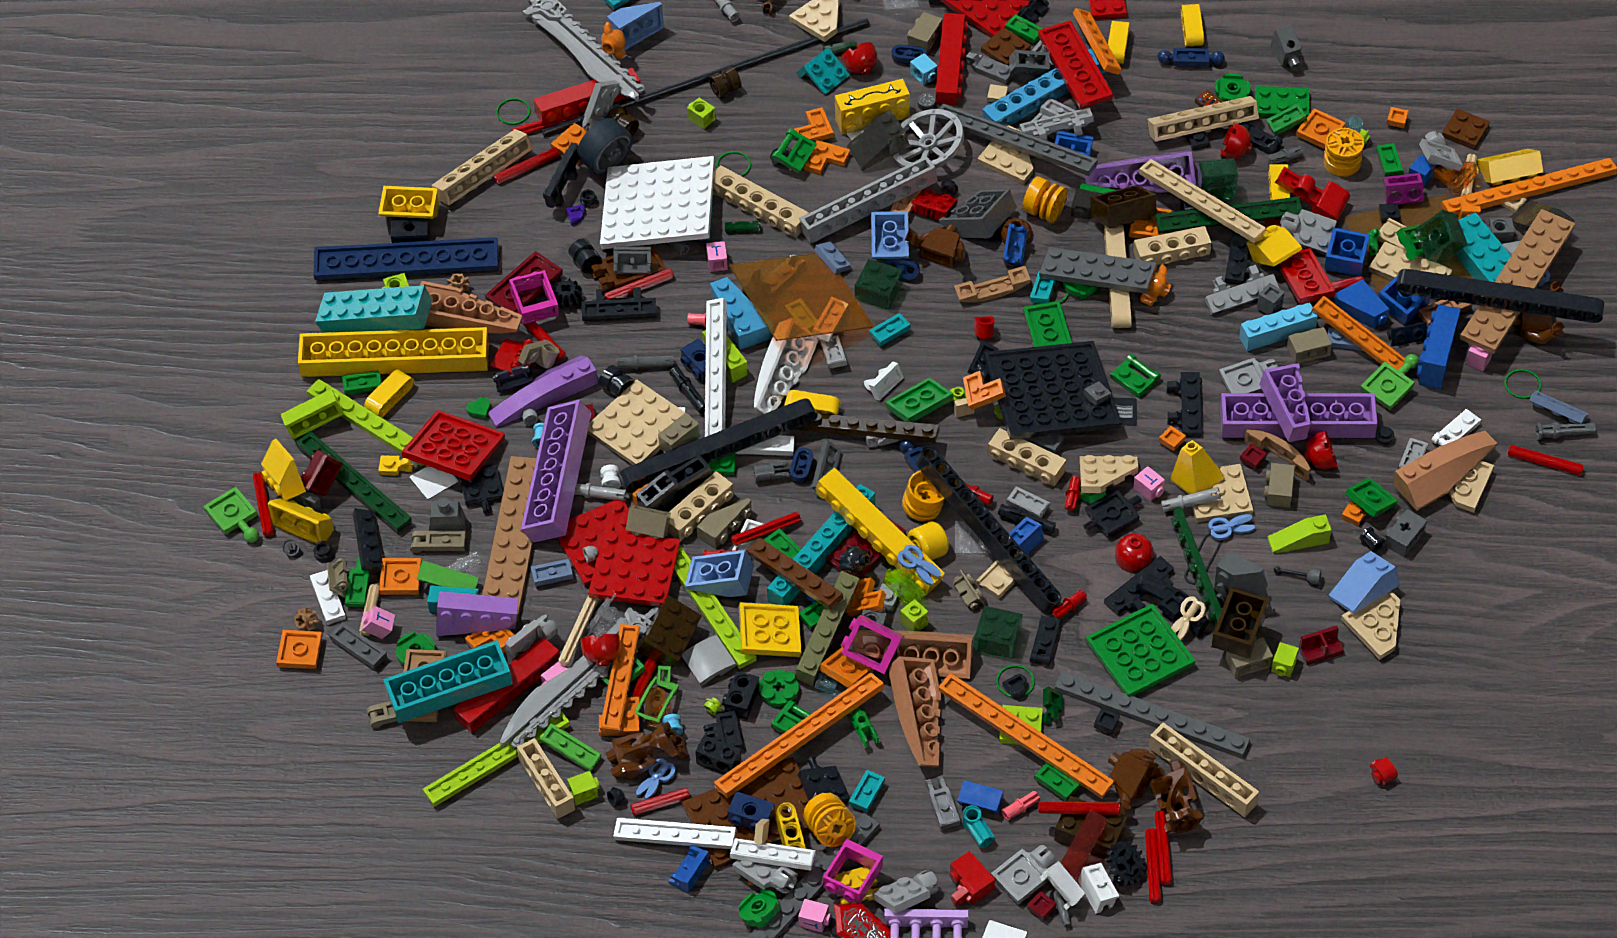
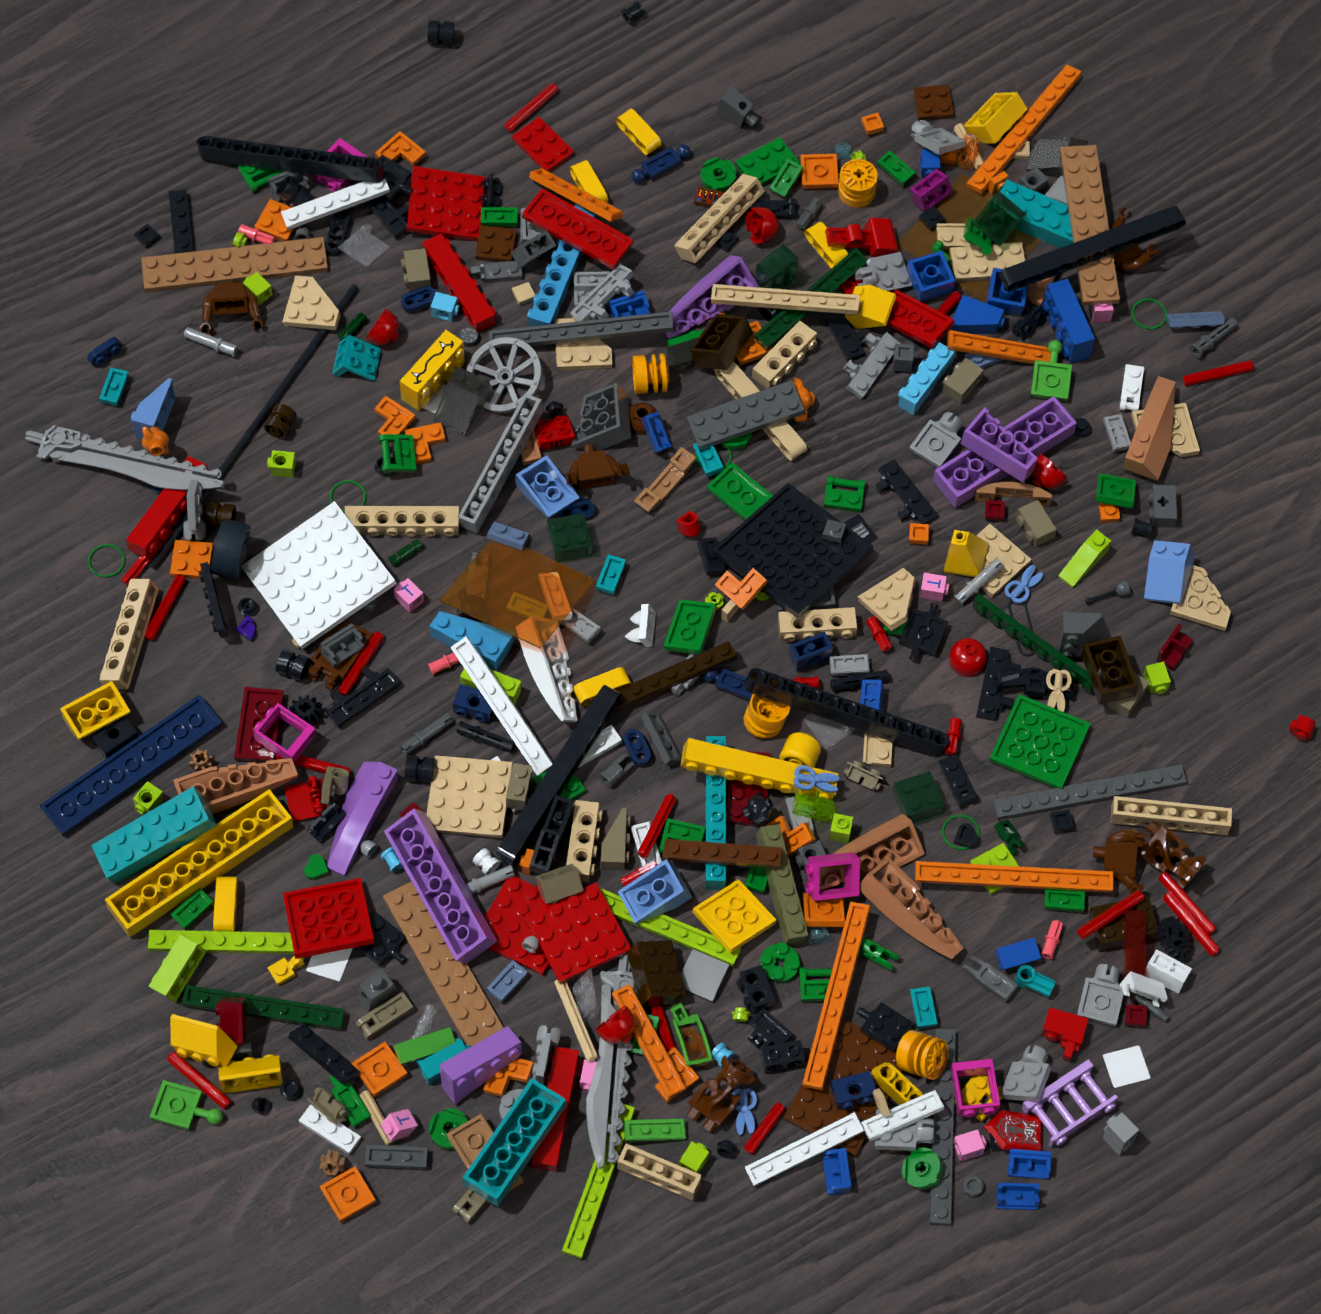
camera: 40 degrees left, 10 degrees up
(1002, 472) = (810, 651): none -> dark blue brick

